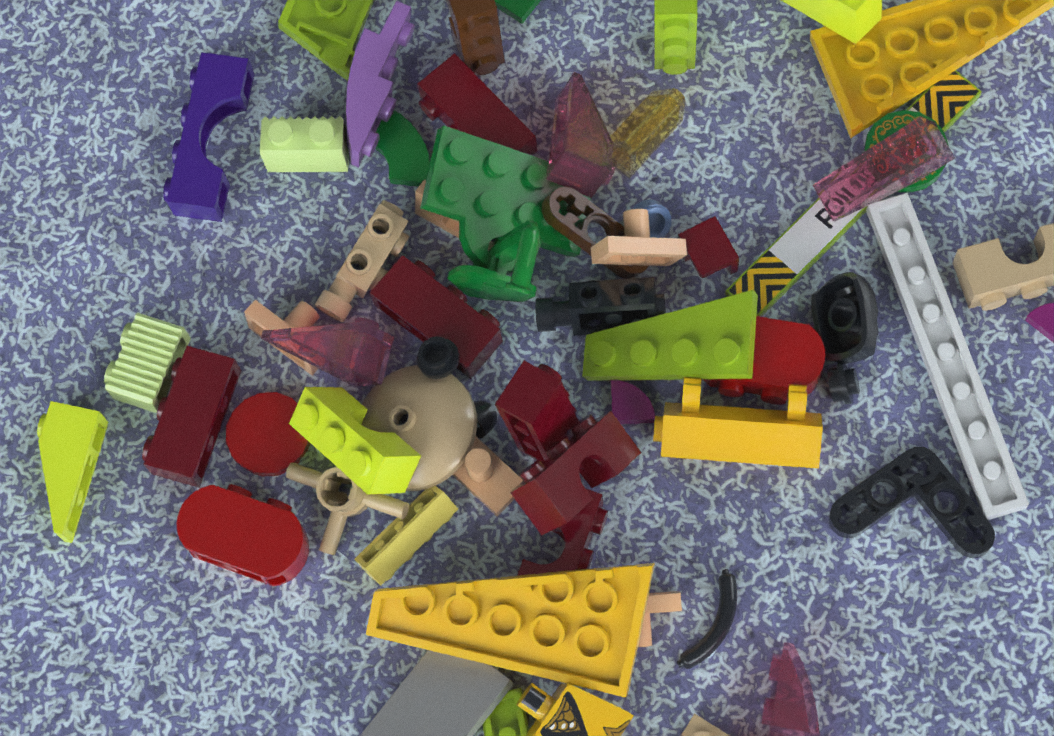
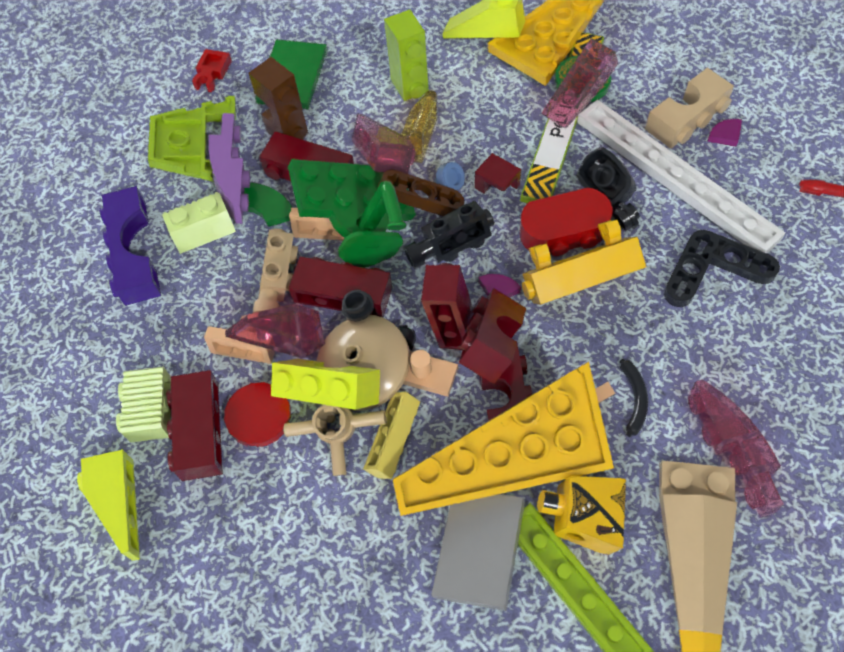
camera: 30 degrees left, 10 degrees down
(243, 534) = (271, 489): red brick -> none
(637, 245) = (454, 188): light nougat tile -> none
(693, 342) = (525, 223): lime wing -> none

